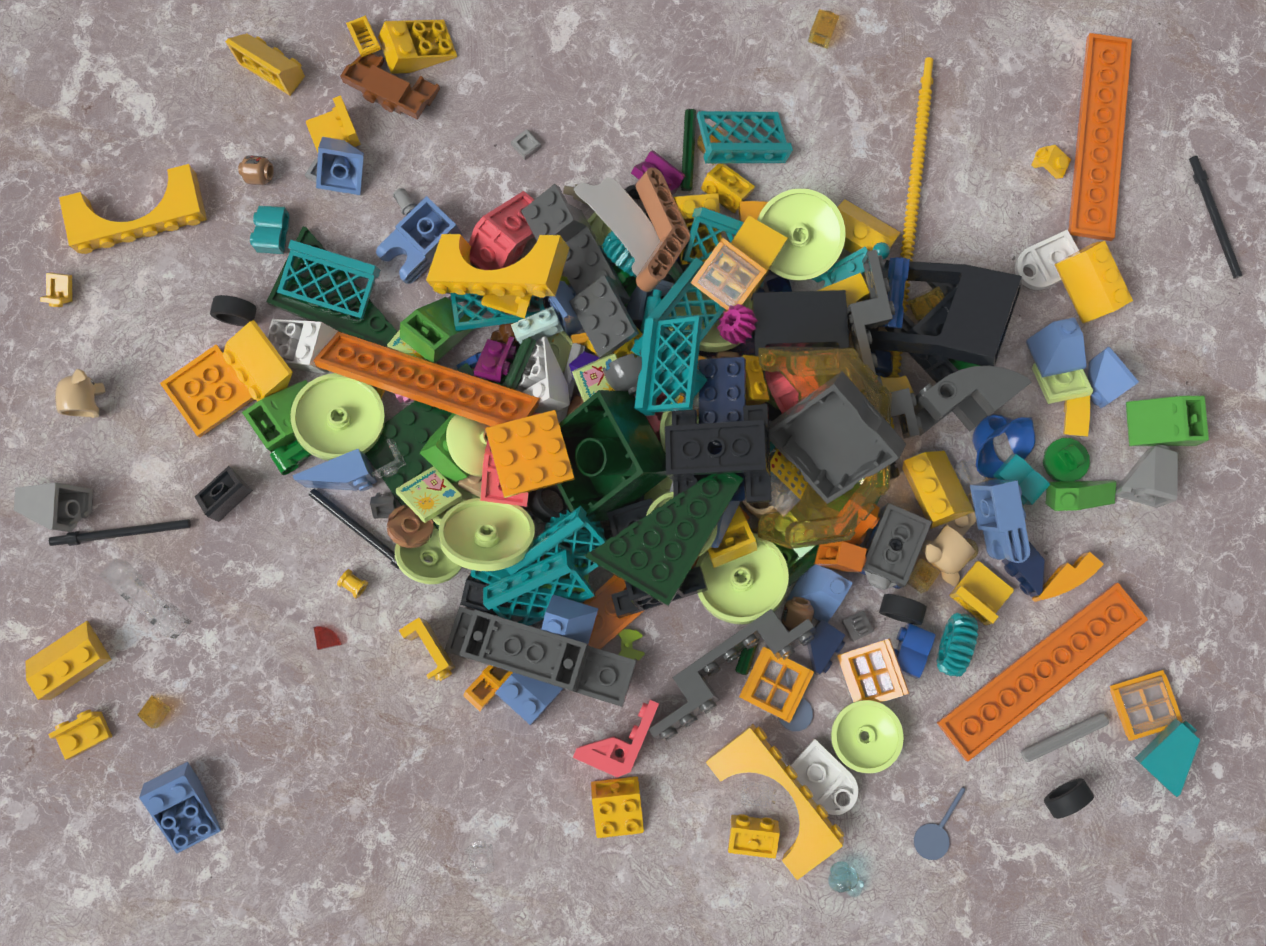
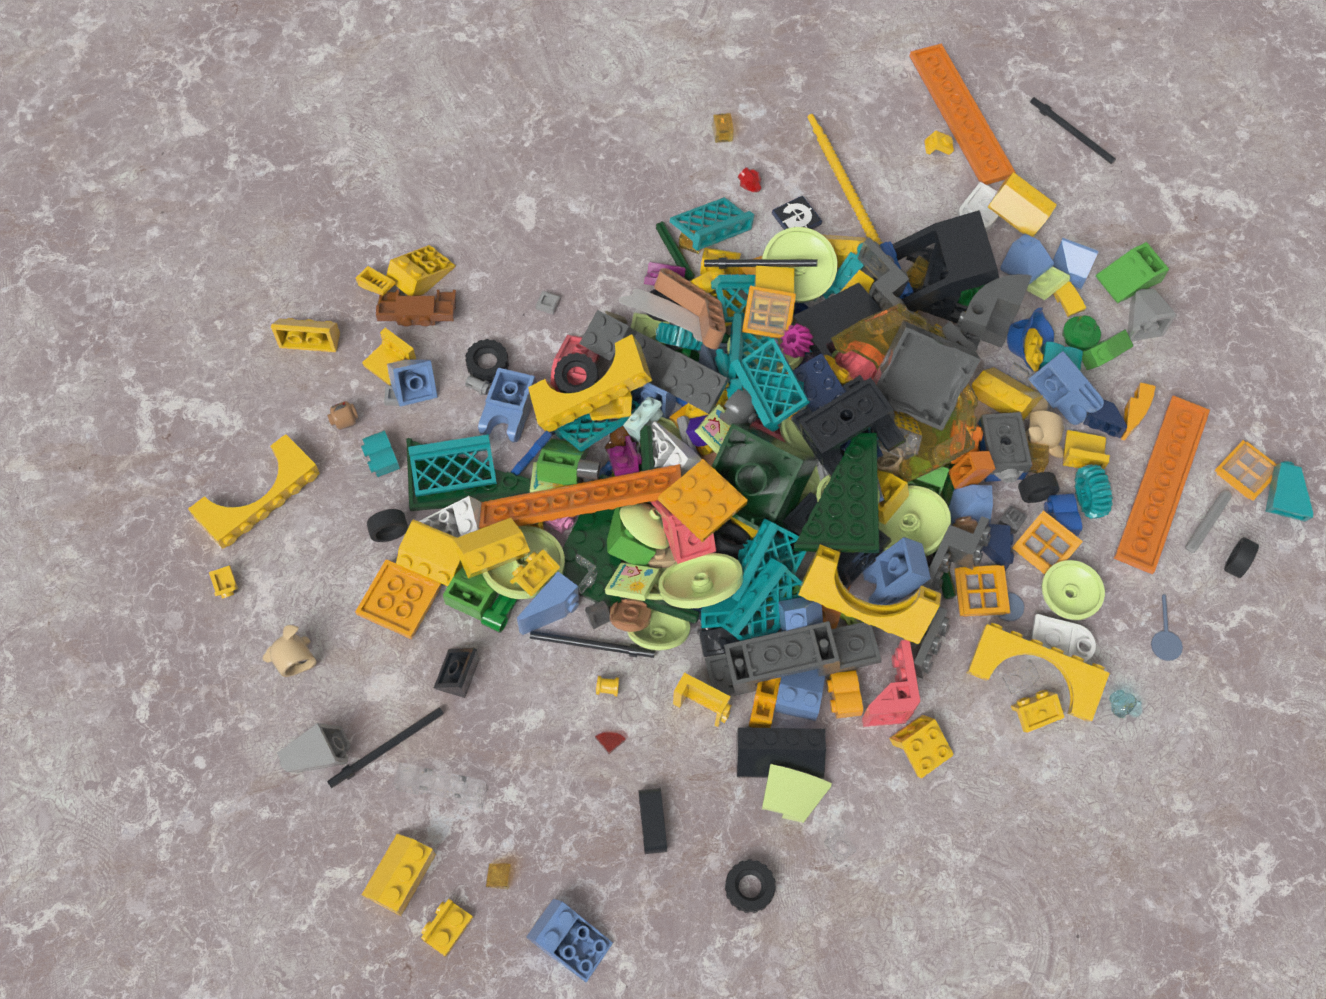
camera: 30 degrees left, 15 degrees down
(306, 389) = (491, 547): none -> yellow slope
(318, 738) = (652, 821): none -> black beam
(336, 437) = (535, 572): none -> yellow bracket
(385, 864) = (767, 886): none -> black tyre
(410, 306) = (526, 460): none -> blue tile
(433, 164) = (486, 347): none -> black tyre
(450, 355) = (588, 470): none -> dark grey piece
(462, 786) = (793, 793): none -> yellowish green slope
(475, 740) = (786, 747): none -> black slope
(487, 230) = (575, 360): none -> black tyre
(572, 717) = (845, 694): none -> light orange brick
(663, 683) = (905, 619): none -> yellow arch
(693, 628) = (897, 572): none -> medium blue brick
(721, 194) = (724, 263): none -> black bar
(815, 106) = (750, 180): none -> red rock
(841, 173) = (797, 214): none -> tile
(990, 462) = (1031, 349): none -> yellow slope

